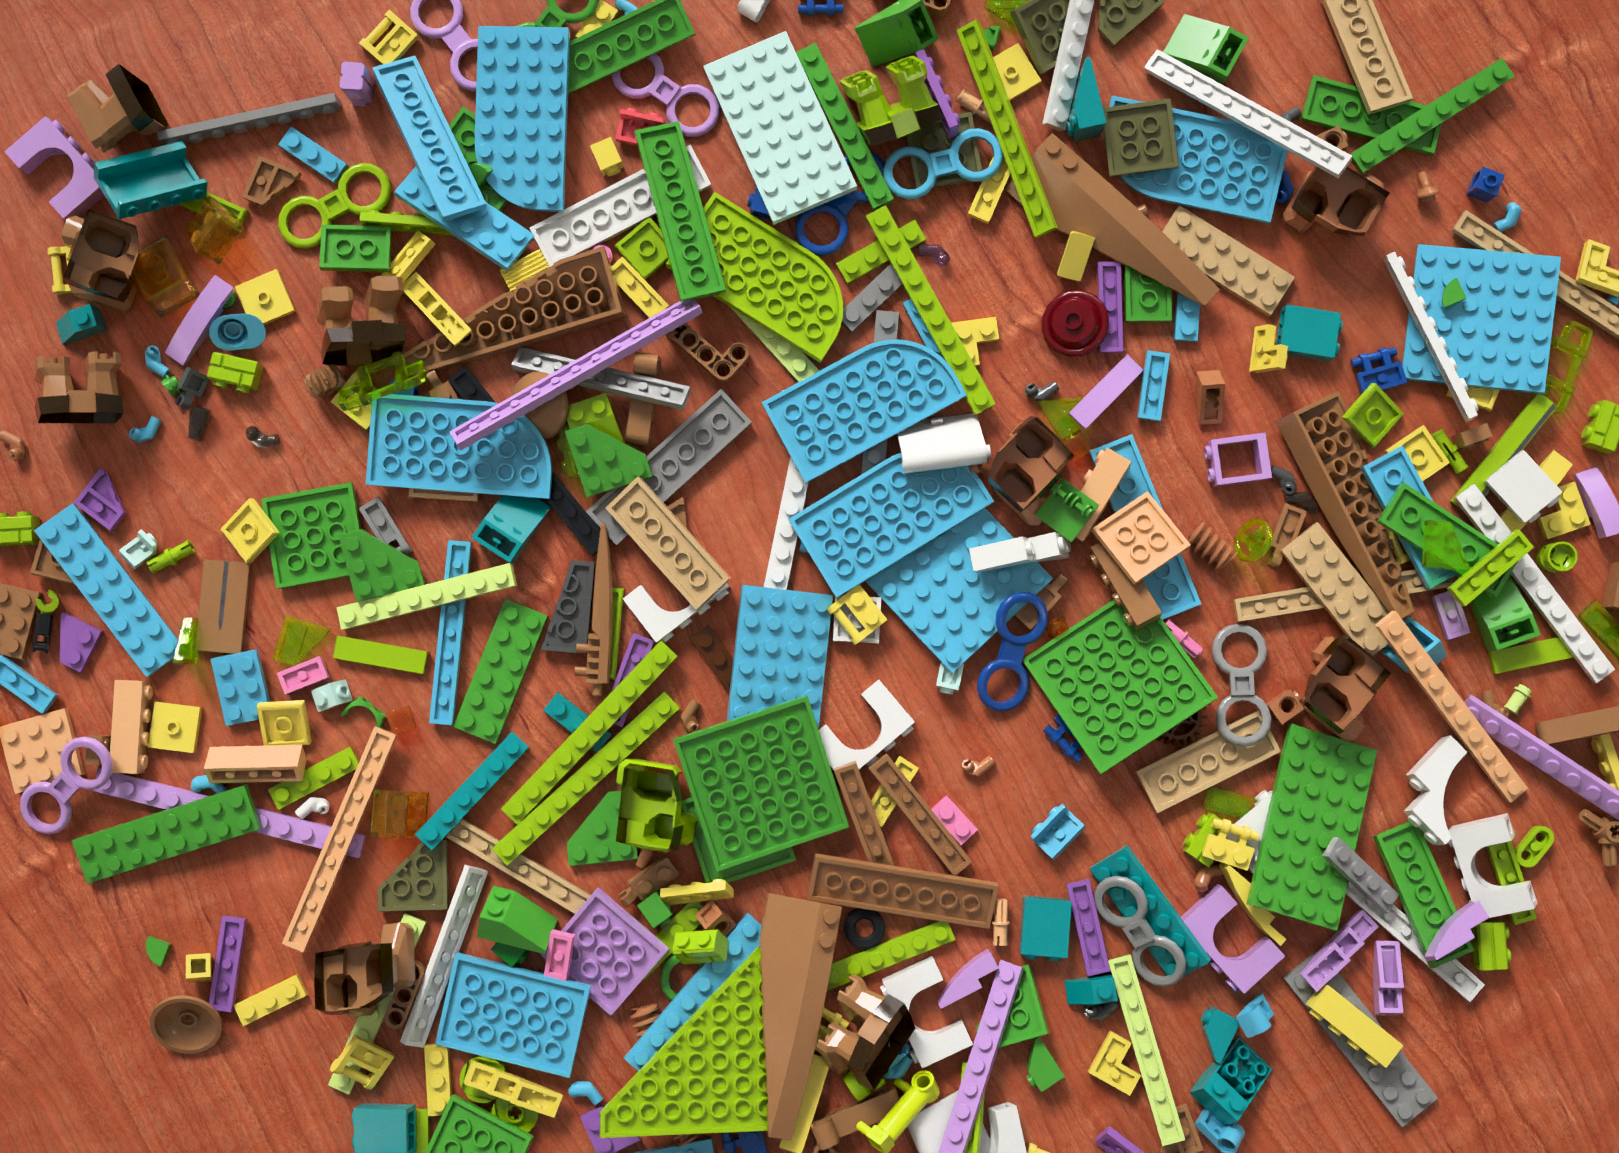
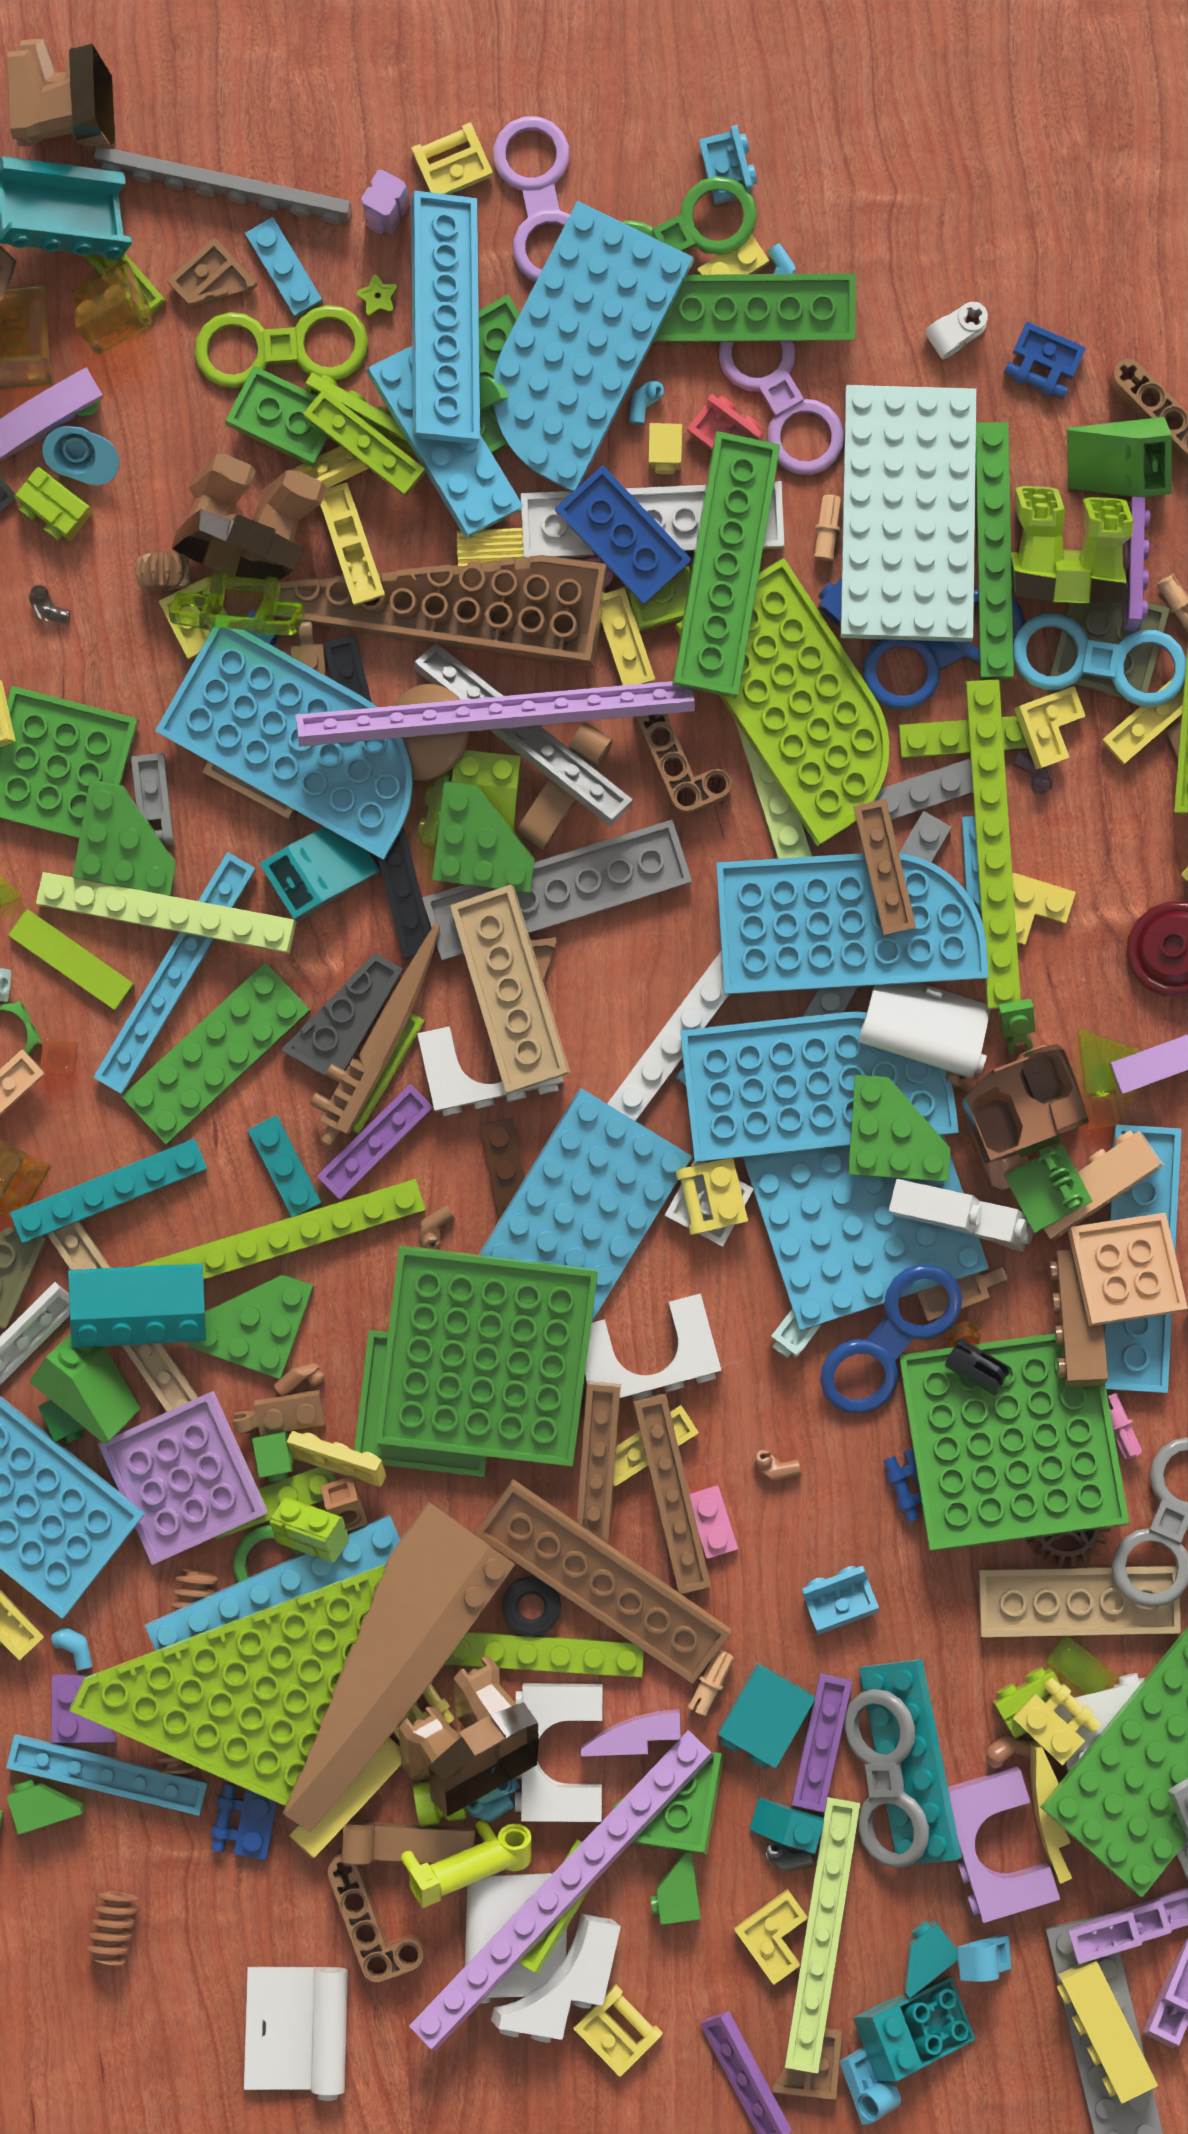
camera: 30 degrees right, 0 degrees up
(266, 297) = (137, 425): light yellow plate -> none
(383, 151) = (384, 302): none -> lime plate
(414, 240) = (364, 442): none -> lime plate
(523, 855) = (136, 1305): none -> teal slope
(559, 955) = (123, 1455): bright pink plate -> none
(578, 134) = (643, 398): none -> medium azure arm
(589, 732) = (294, 1186): lime plate -> none
(606, 223) = (623, 535): none -> blue plate
(652, 807) = (331, 1320): lime piece -> none
(733, 161) = (827, 528): none -> light nougat axle
(869, 355) = (884, 867): none -> medium nougat plate
(925, 222) = (1041, 724): none -> light yellow plate
(953, 522) = (892, 1136): none -> bright green plate
(997, 415) = (1016, 1023): none -> bright green plate
(1038, 393) = (1086, 1019): dark grey arm -> none
(1075, 643) = (977, 1366): none -> black arm

